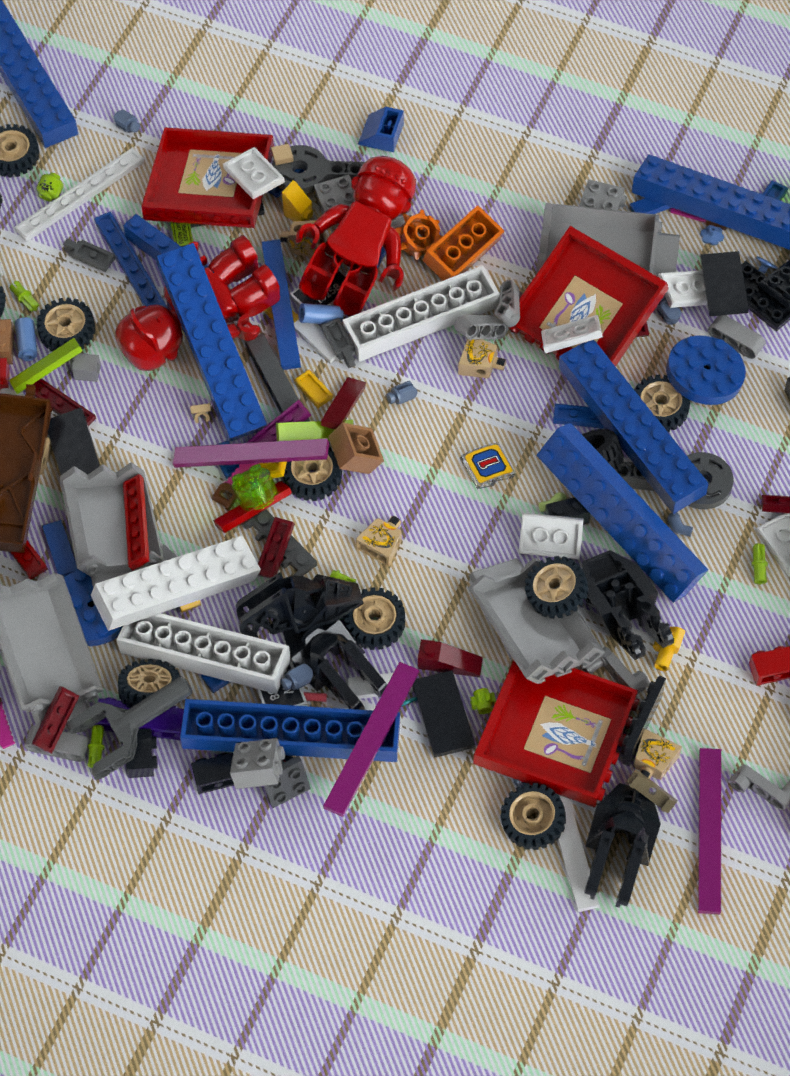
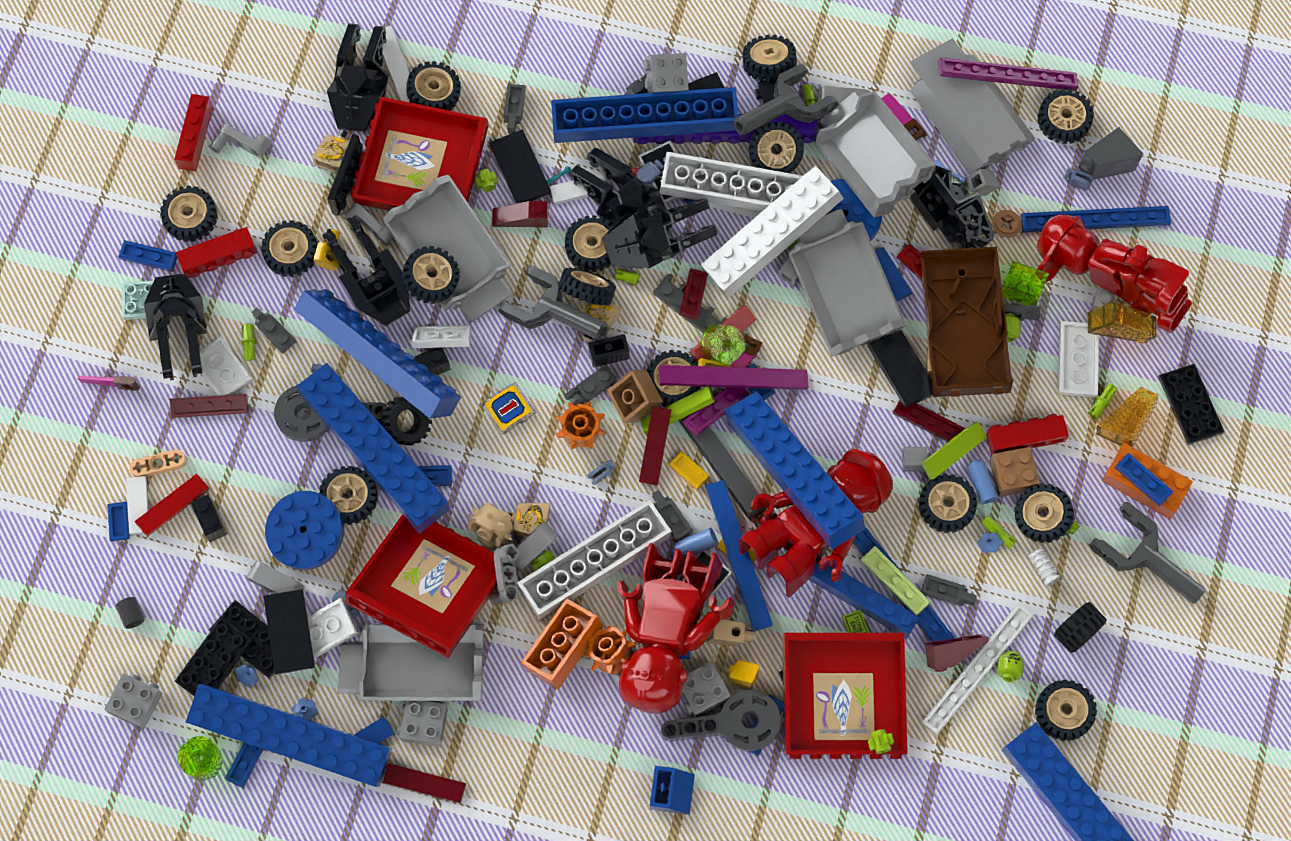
camera: 170 degrees right, 10 degrees up
(35, 290) = (989, 542): none -> medium blue plant
(55, 719) = (847, 100): dark red tile -> none
(96, 204) = (952, 651): none -> dark red slope
(114, 799) = (768, 57): none -> black wheel
(126, 121) = (952, 767): sand blue arm -> none
(136, 265) = (895, 580): none -> yellowish green tile
(136, 522) = (823, 287): red tile -> none
(186, 129) = (880, 741): none -> lime gear
(201, 410) = (795, 426): tan tile -> none
(253, 173) = (795, 690): white tile -> none
(282, 154) = (771, 728): tan tile -> none
(371, 739) = (573, 105): magenta tile -> none
(375, 500) = (608, 350): none -> black brick
(398, 477) = (592, 385): none -> dark grey hinge
(402, 557) = (587, 286): none -> black wheel
(416, 433) = (571, 423): none -> orange brick
(427, 546) = (552, 307): none -> dark grey piece
(440, 788) = (514, 106): none -> dark grey hinge
(519, 350) = (491, 525): none -> tan brick
(557, 497) = (447, 374): yellowish green arm -> none
(571, 334) = (438, 535): white tile -> none
(602, 164) = (424, 783): none -> dark red tile
(643, 784) = (336, 122): dark tan piece -> none
(706, 669) = (286, 236): none -> wheel
(709, 832) = (286, 104): magenta tile -> none
(732, 575) = (273, 330): none -> dark grey hinge

